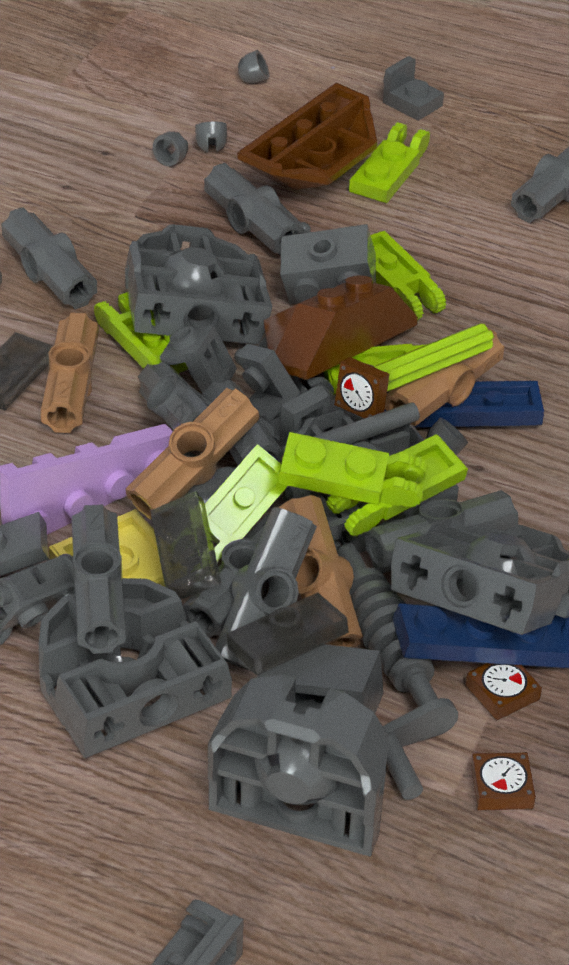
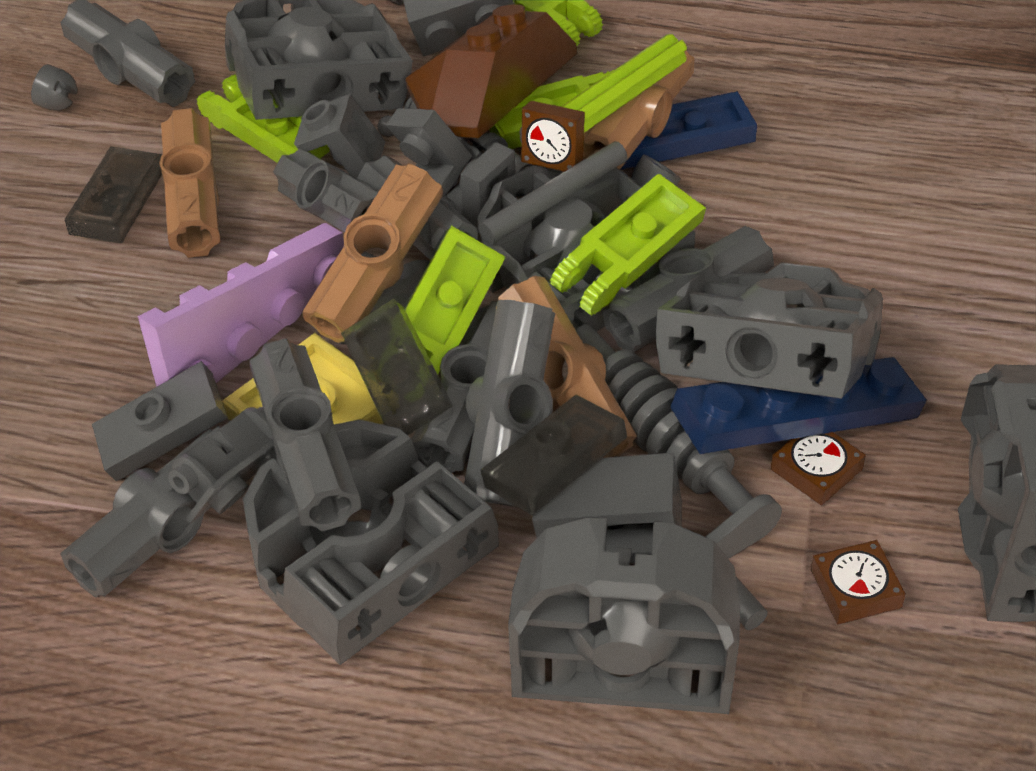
camera: 10 degrees left, 5 degrees up
(352, 471) = (575, 237): lime hinge -> none

